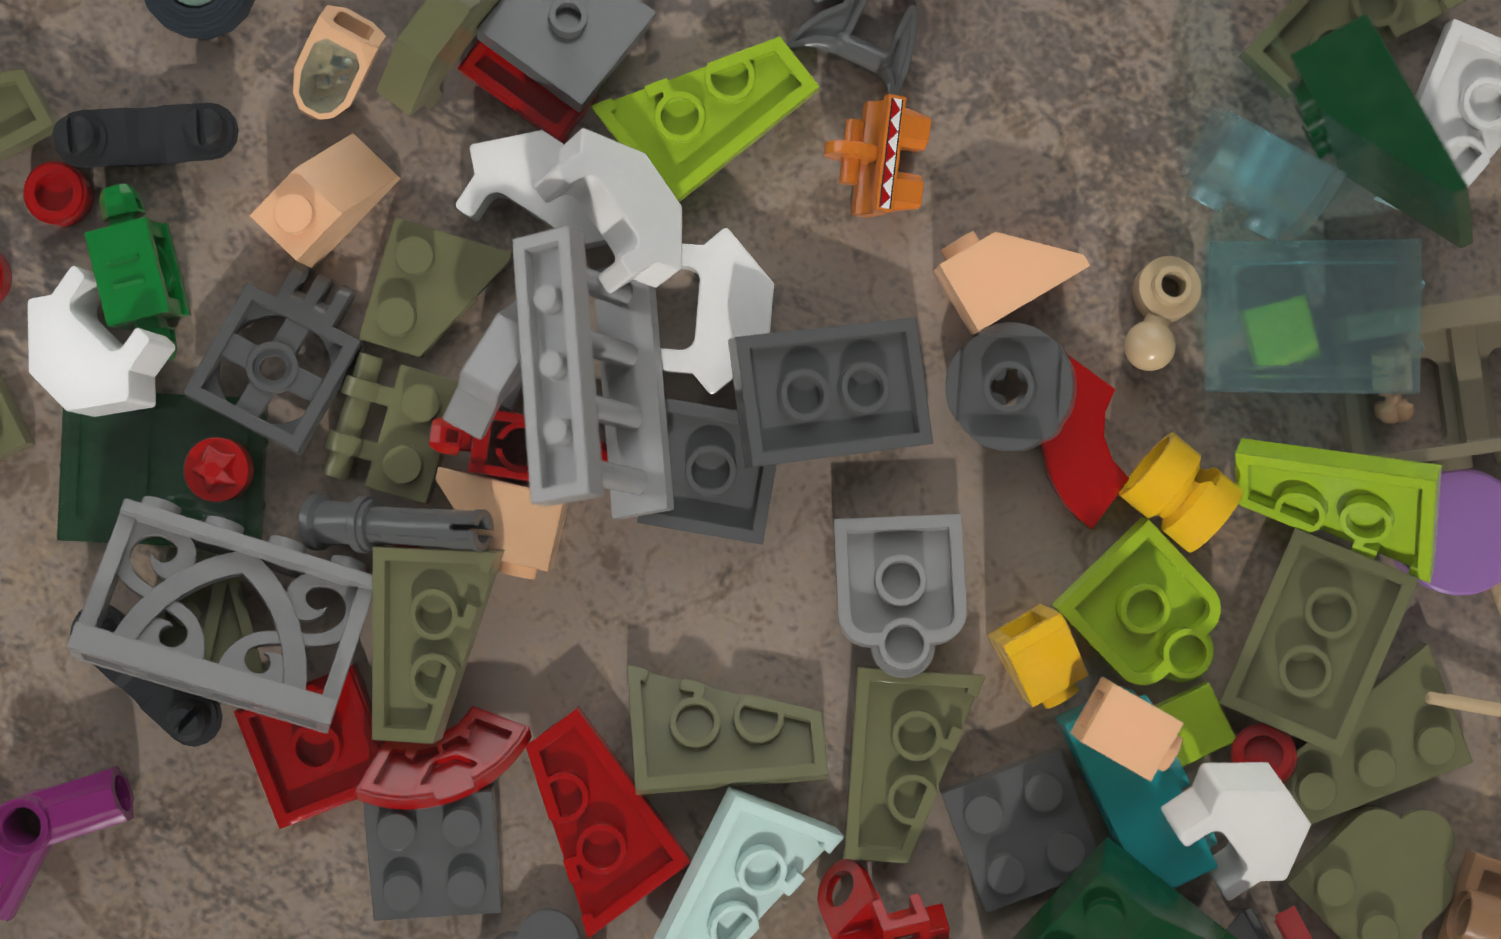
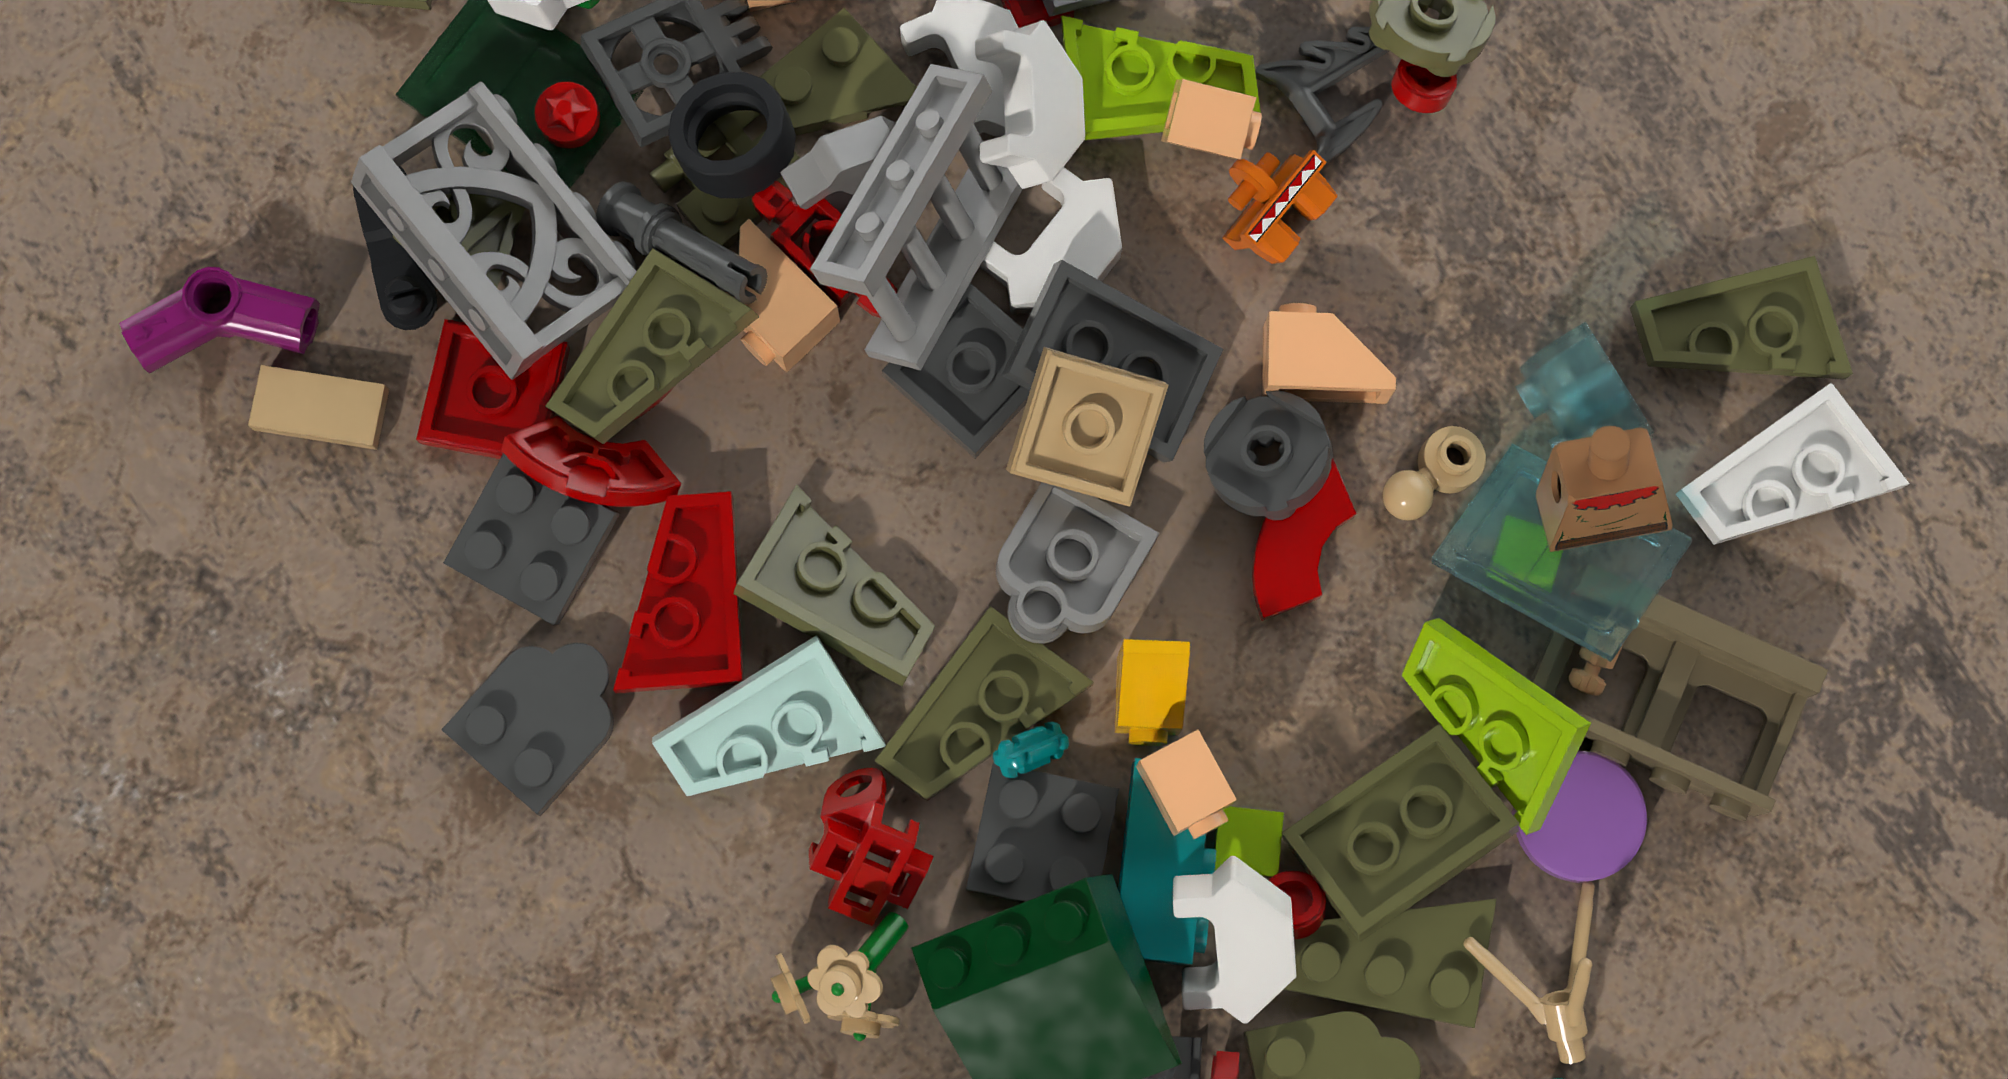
camera: 25 degrees right, 10 degrees down
(178, 852) = (318, 407): none -> tan tile
(331, 394) = (718, 97): none -> black tyre
(783, 124) = (1211, 119): none -> light nougat brick
(847, 467) = (1087, 427): none -> tan tile
(968, 766) = (1030, 749): none -> teal piece
(1144, 609) = (1267, 716): lime plate -> none
(1184, 495) = (1358, 629): yellow wheel -> none
(1329, 250) = (1602, 490): none -> medium nougat torso
(1376, 130) = (1695, 406): dark green slope -> none

